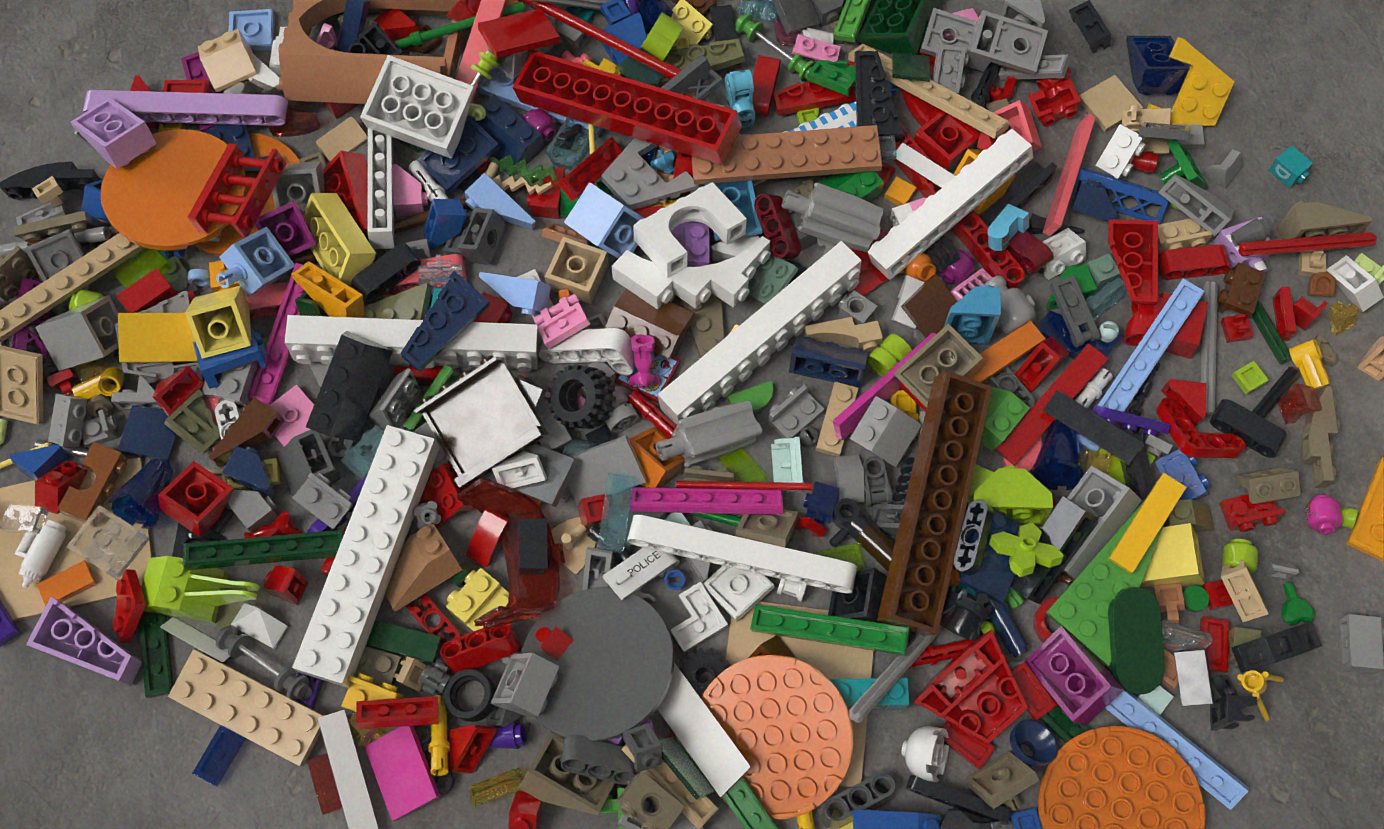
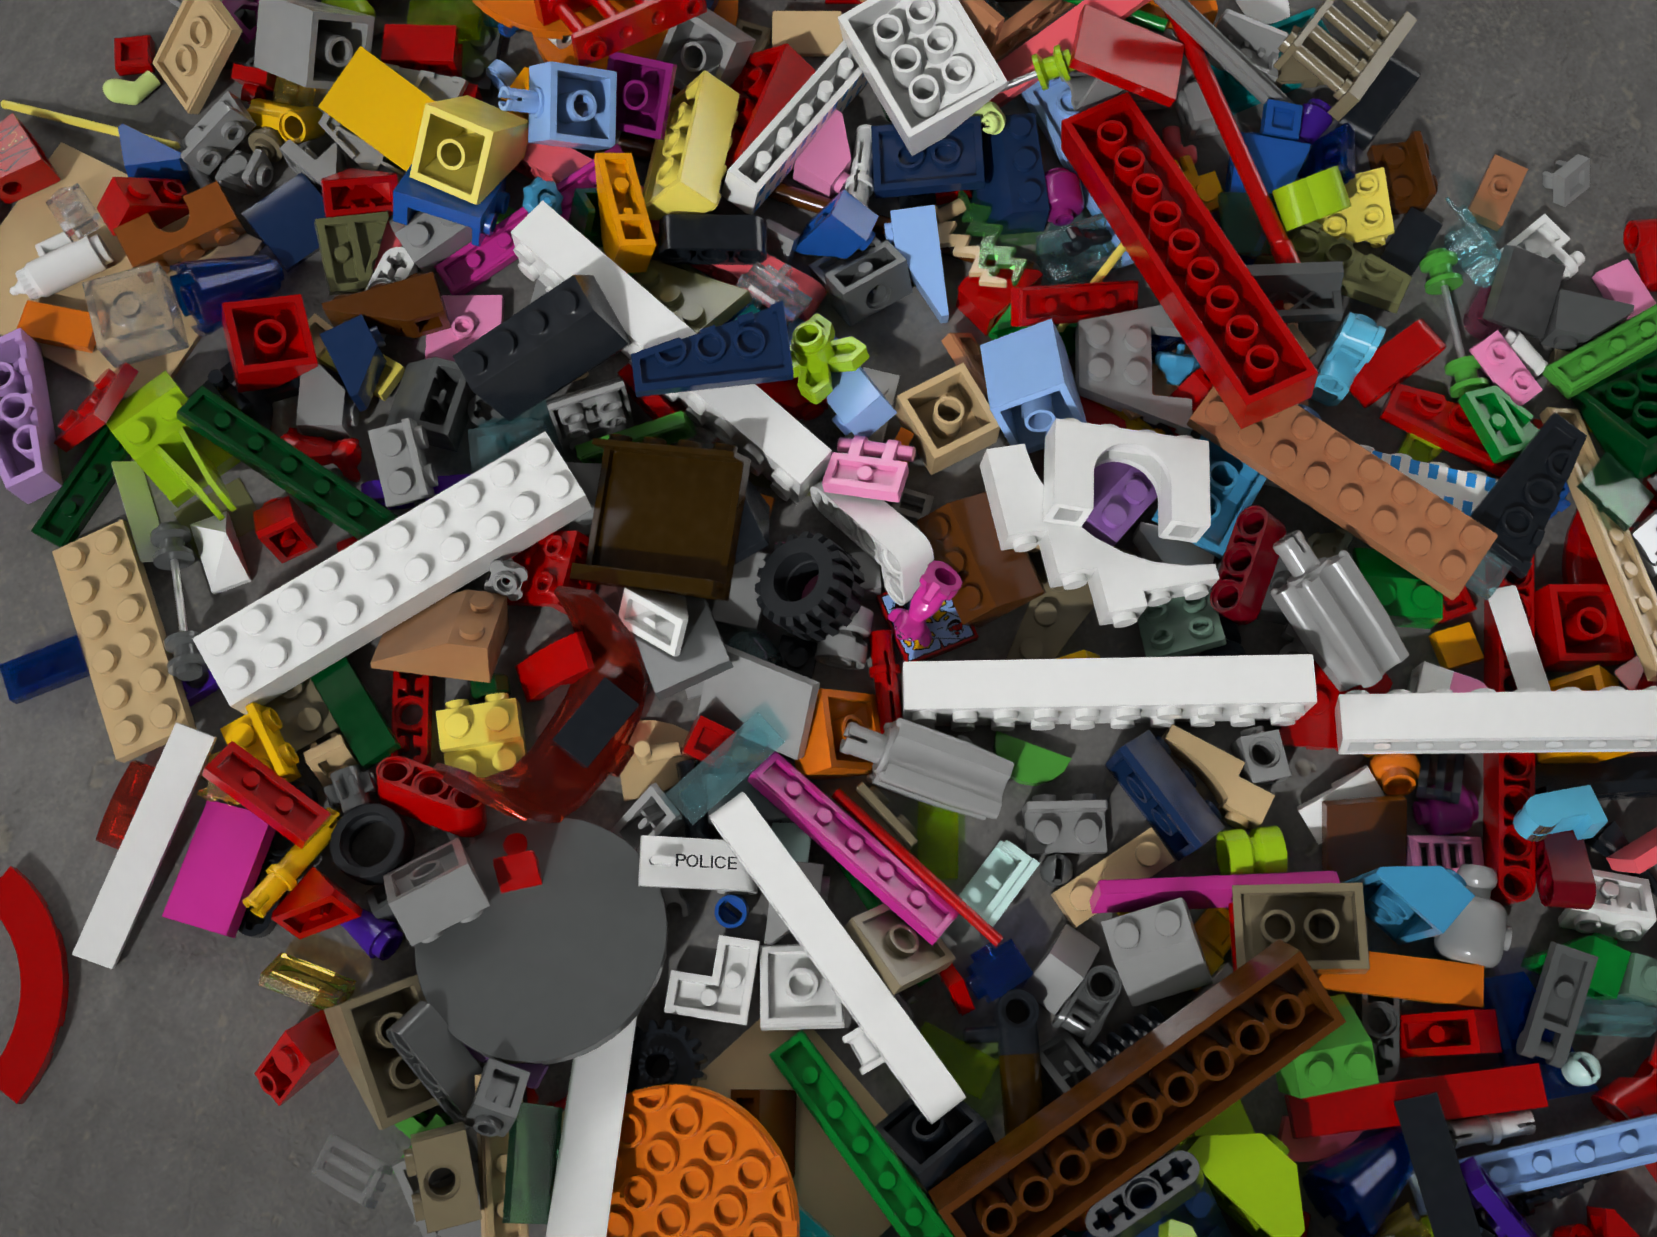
camera: 35 degrees right, 5 degrees up
(278, 318) = (539, 191): none -> dark azure piece
(492, 284) = (818, 354): none -> lime plant

